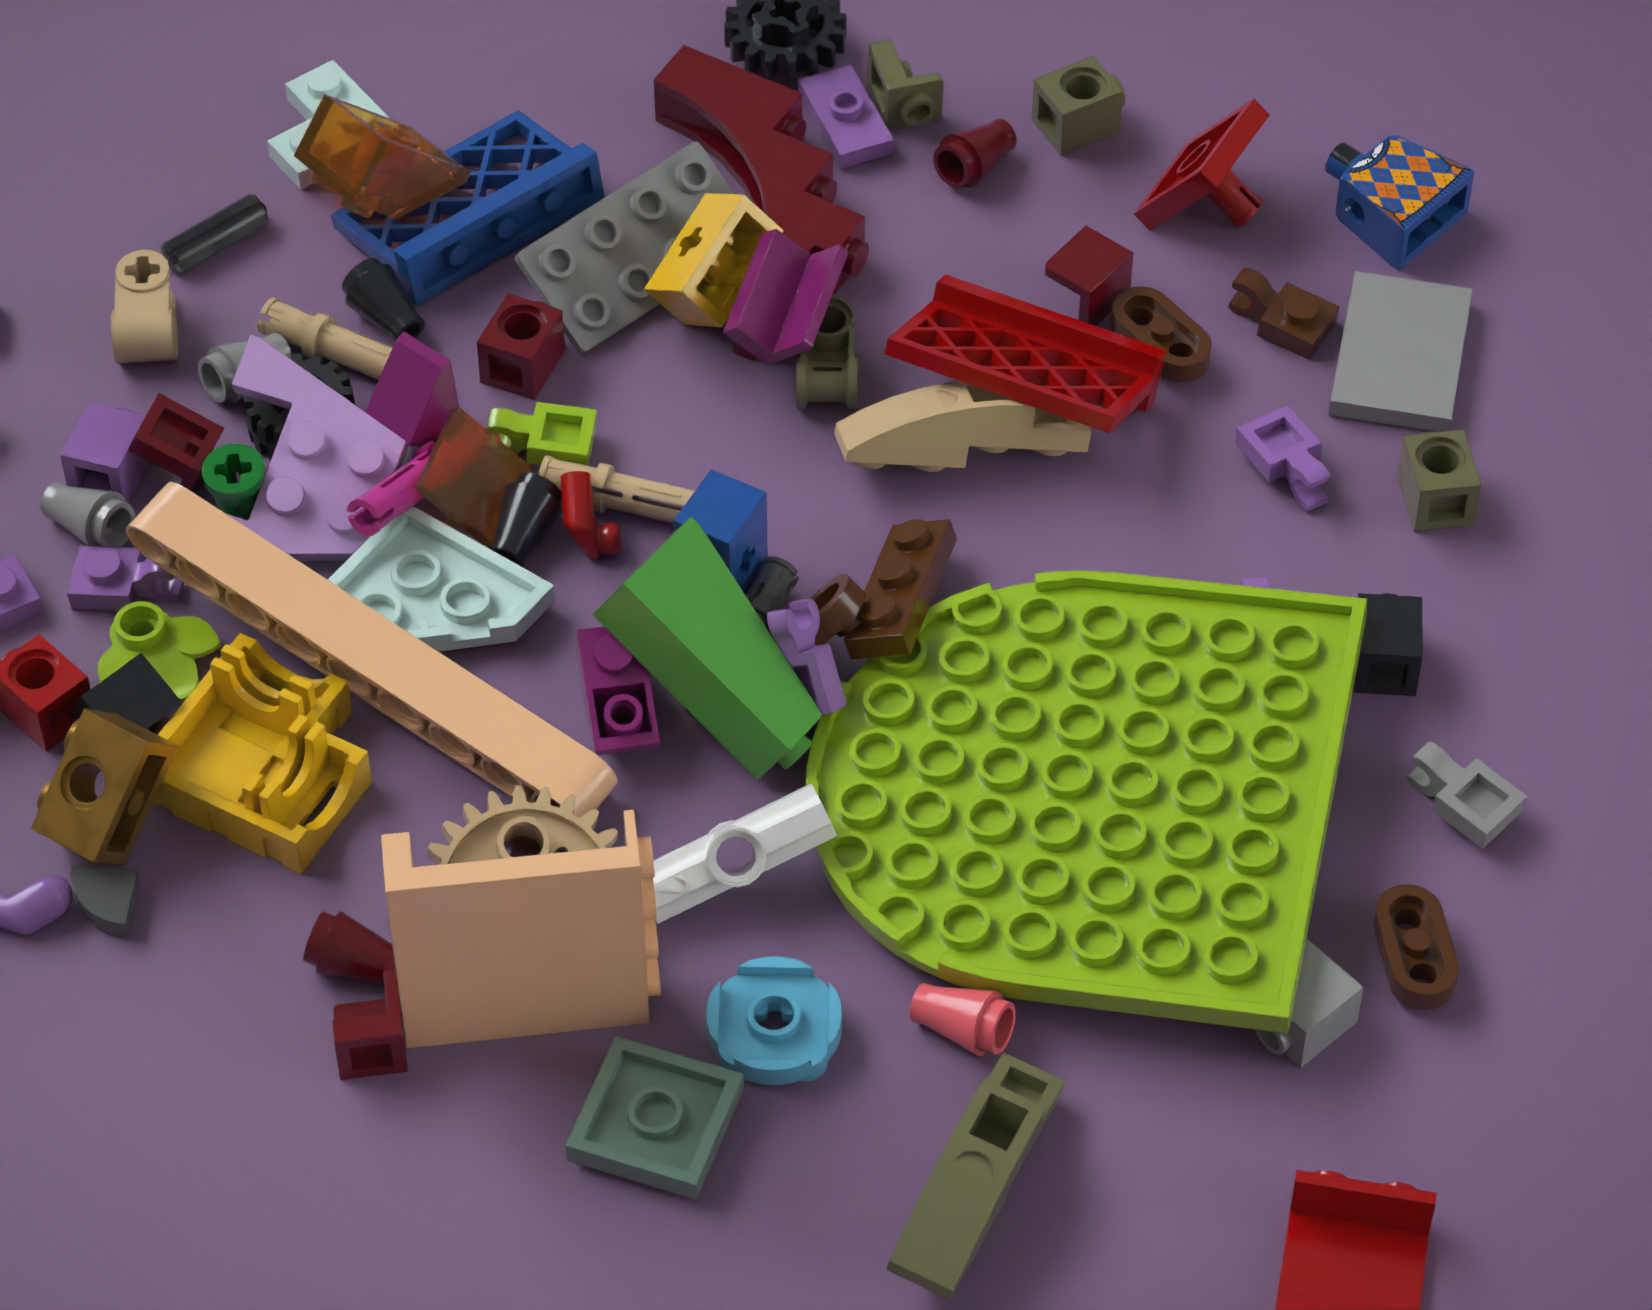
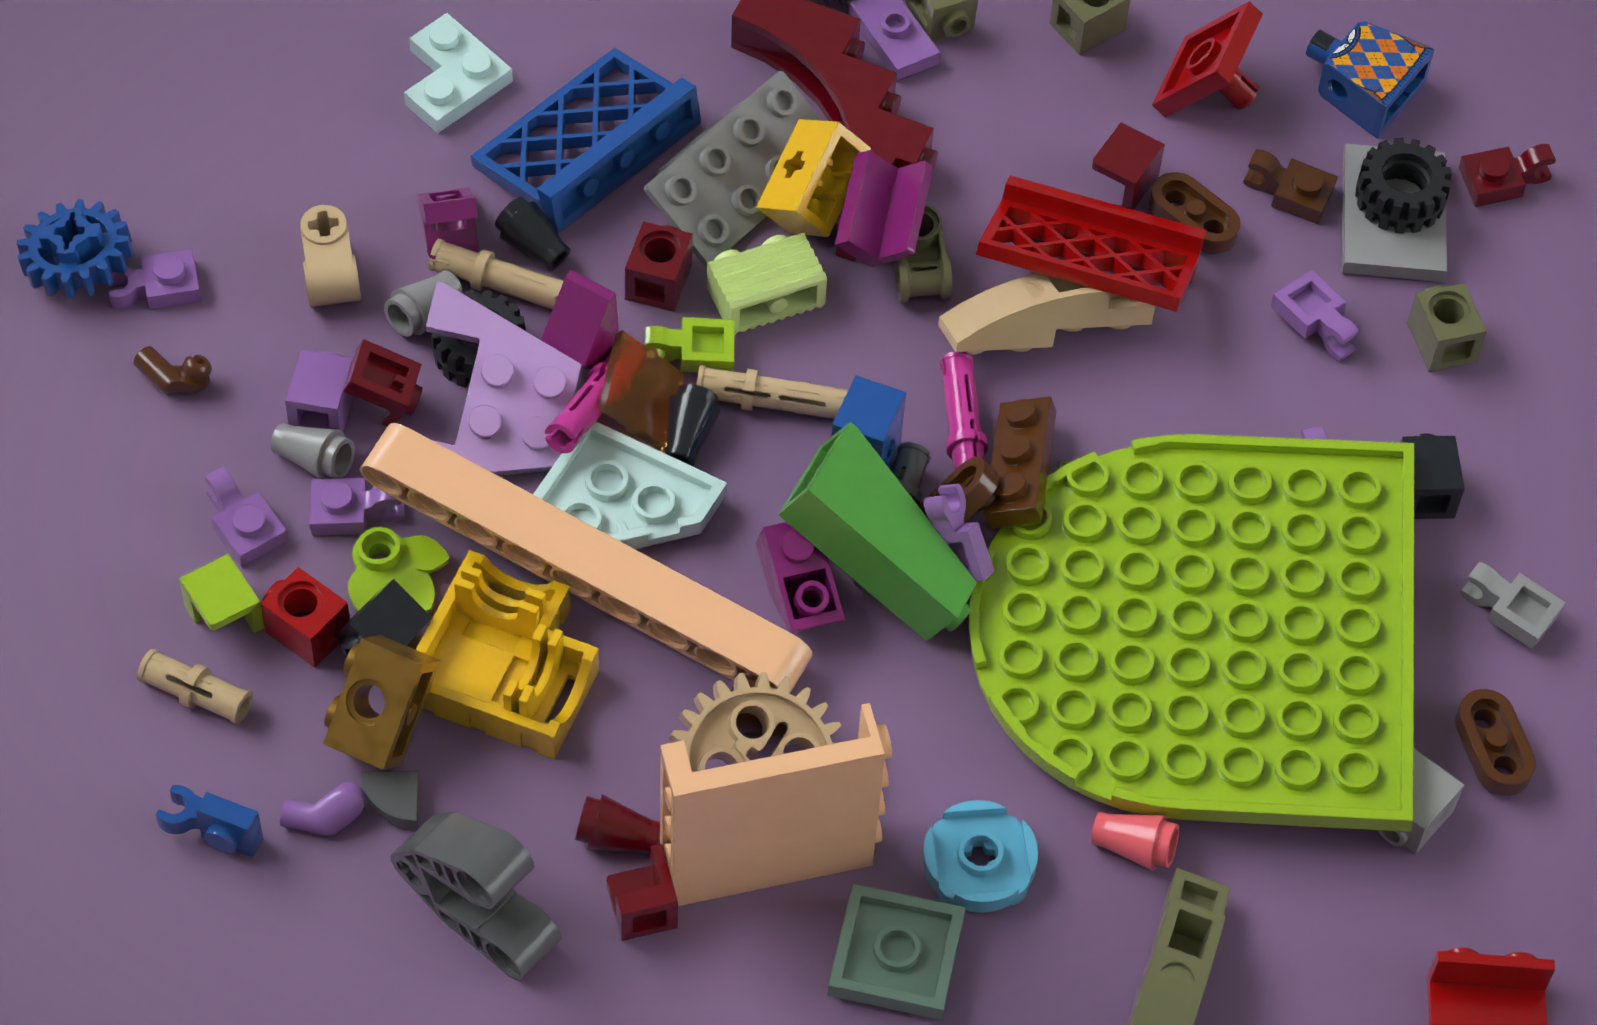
camera: 10 degrees left, 5 degrees up
(155, 982) = (468, 880): none -> dark grey connector
(215, 233) = (374, 180): black axle -> none
(222, 481) = (450, 407): green bush -> none
(292, 278) = (449, 217): none -> magenta slope
(375, 160) = (504, 106): clear orange slope -> none
(580, 518) = (738, 420): red arm -> none
(643, 373) = (767, 282): none -> yellowish green brick
(775, 833) = (957, 695): white piece -> none
(847, 524) = (962, 409): none -> dark pink pin
(971, 153) = (1007, 61): dark red cone -> none
(1407, 343) = (1397, 207): none -> black tyre
(1536, 321) = (1500, 177): none -> dark red plate

